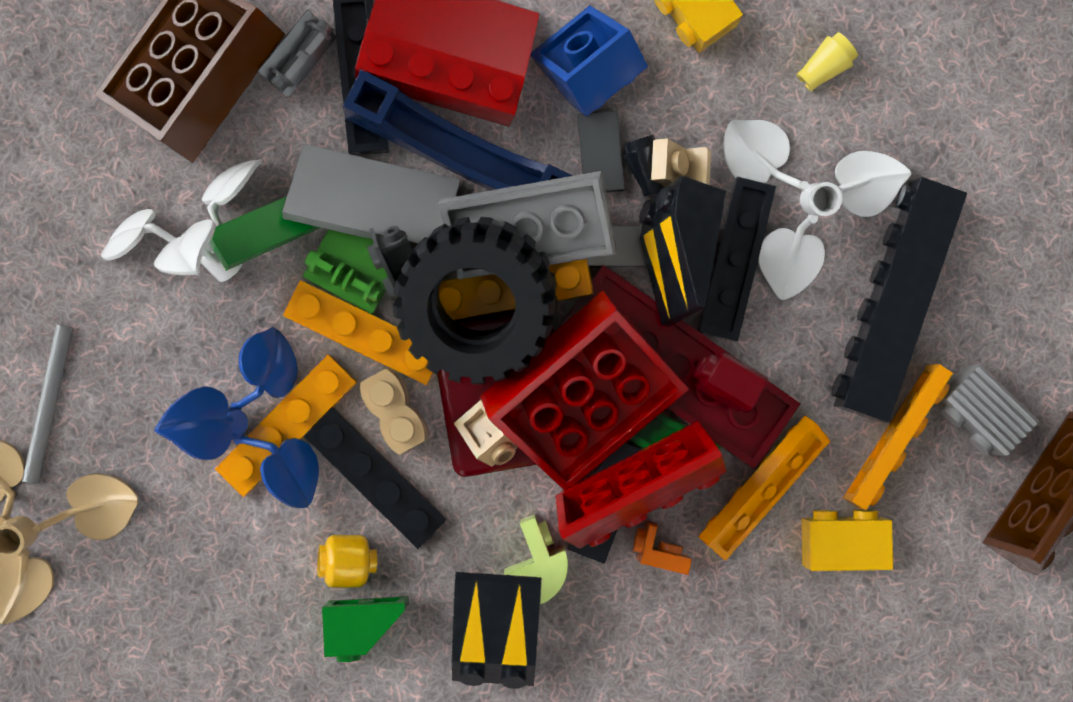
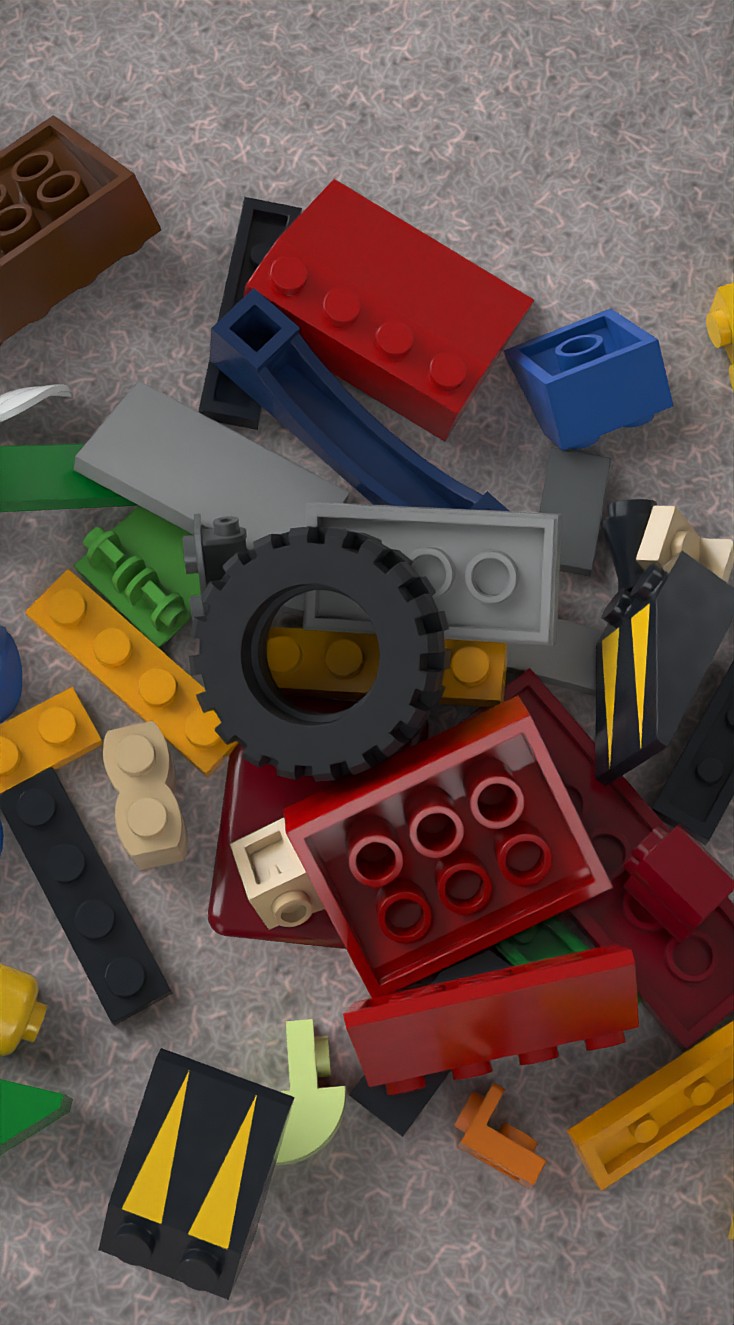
camera: 20 degrees right, 15 degrees down
(297, 53) = (171, 261): dark grey hinge -> none

